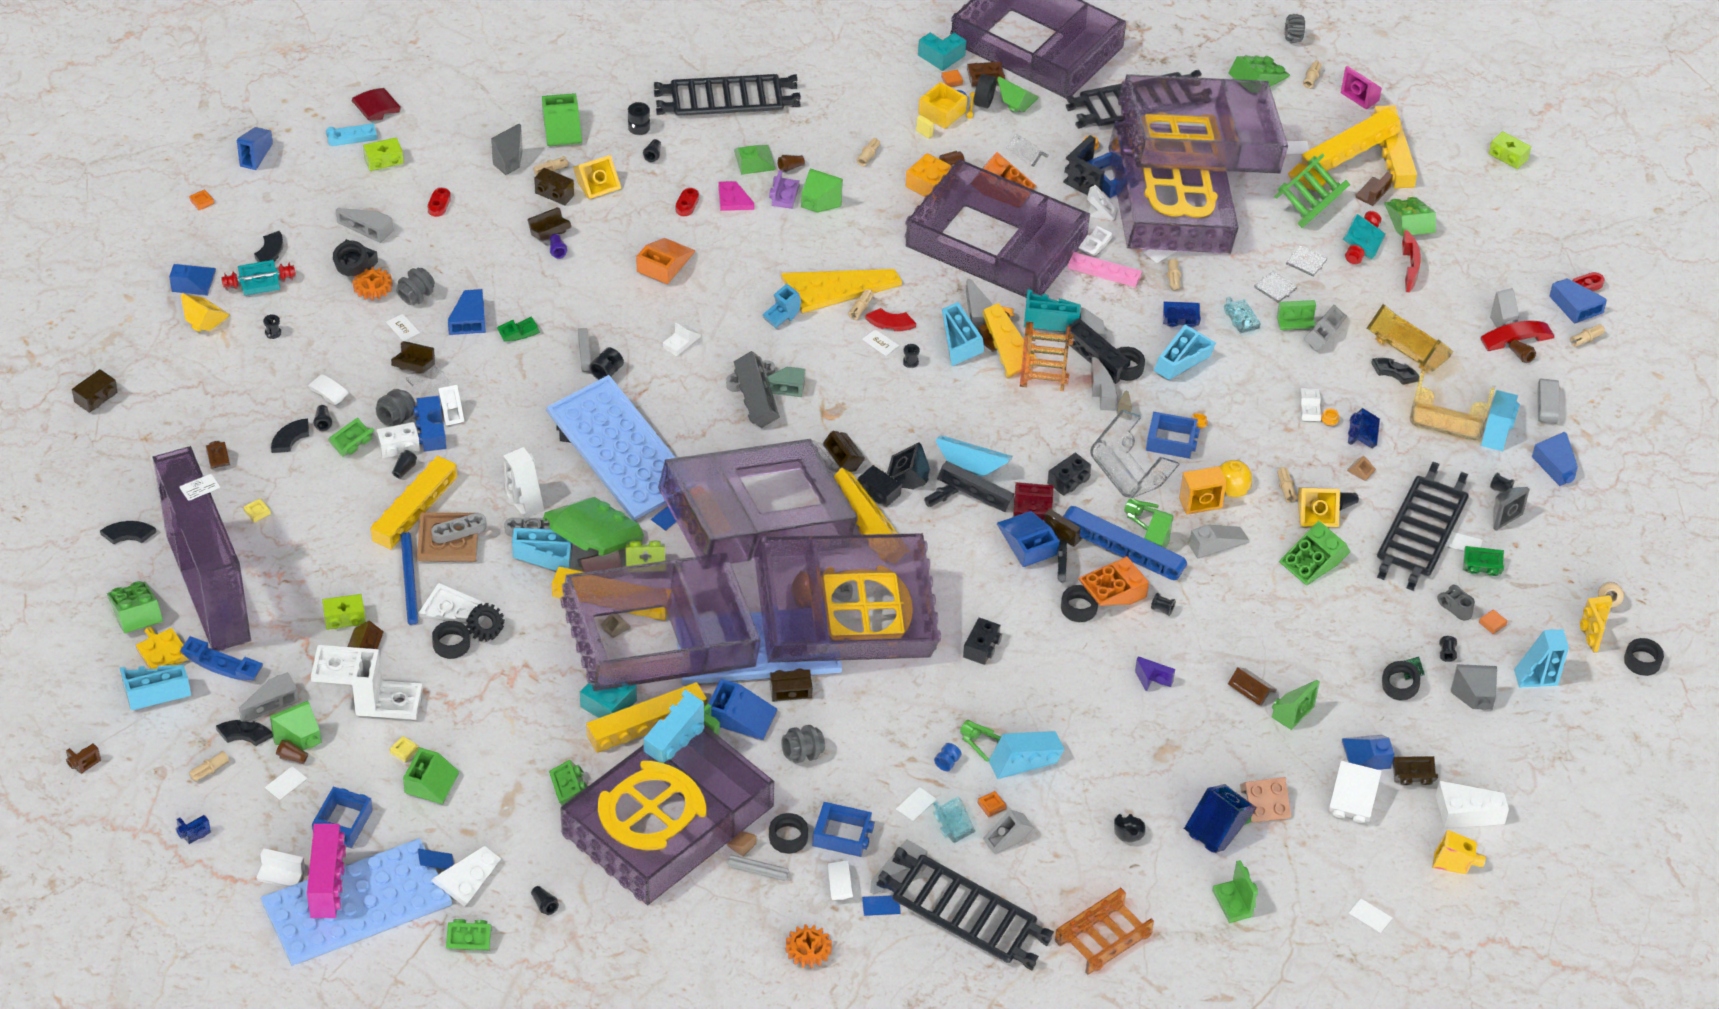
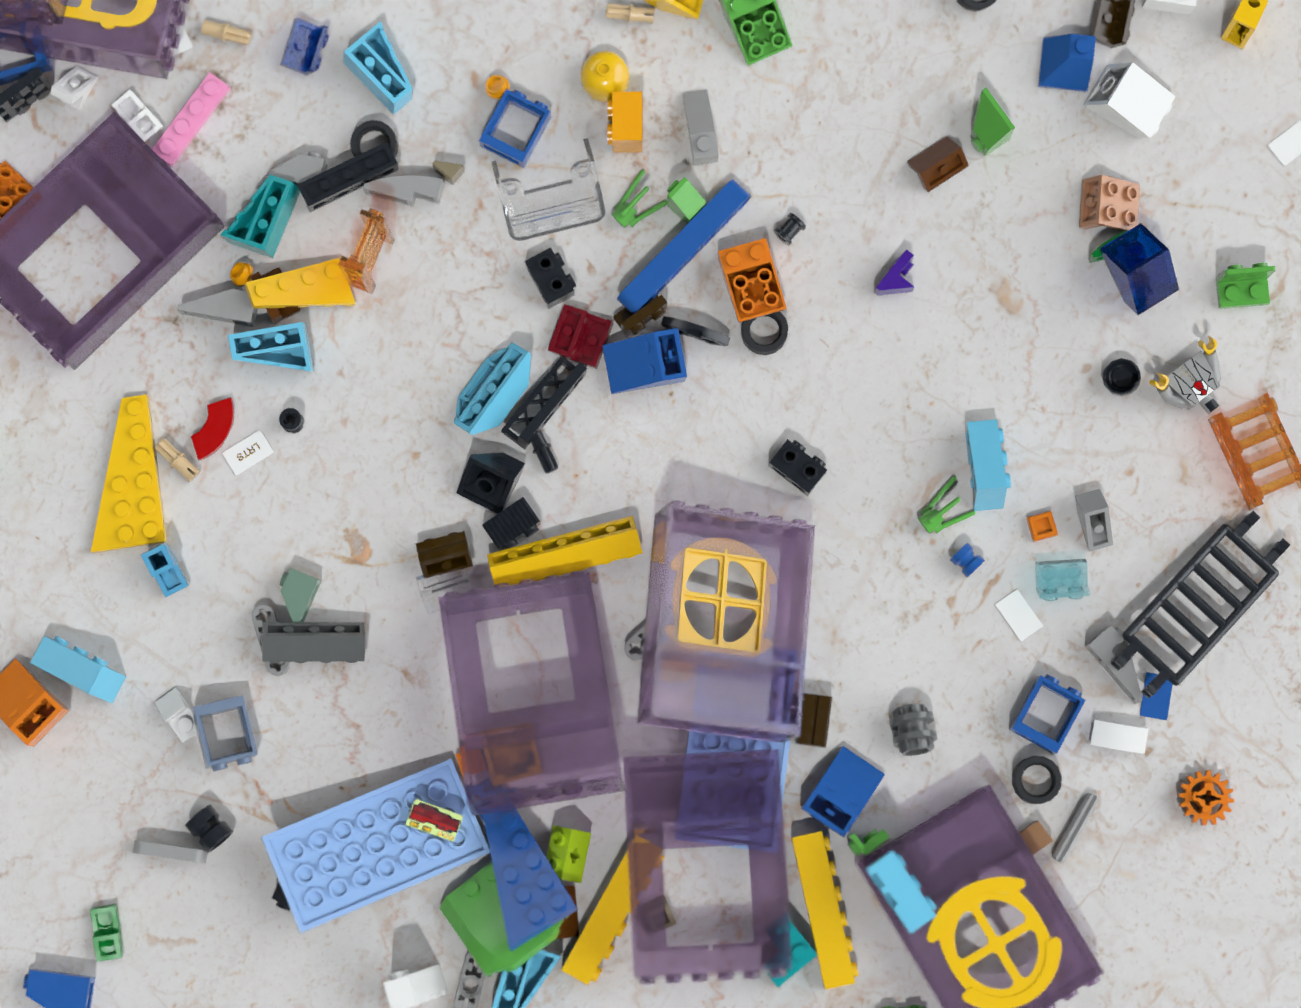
camera: 70 degrees left, 35 degrees up
(621, 526) = (525, 881): none -> blue wing
(648, 475) = (434, 820): none -> slope
(693, 351) = (221, 707): none -> sand blue window
(696, 280) = (78, 669): none -> medium azure wedge
(1145, 875) = (1193, 380): none -> light grey torso

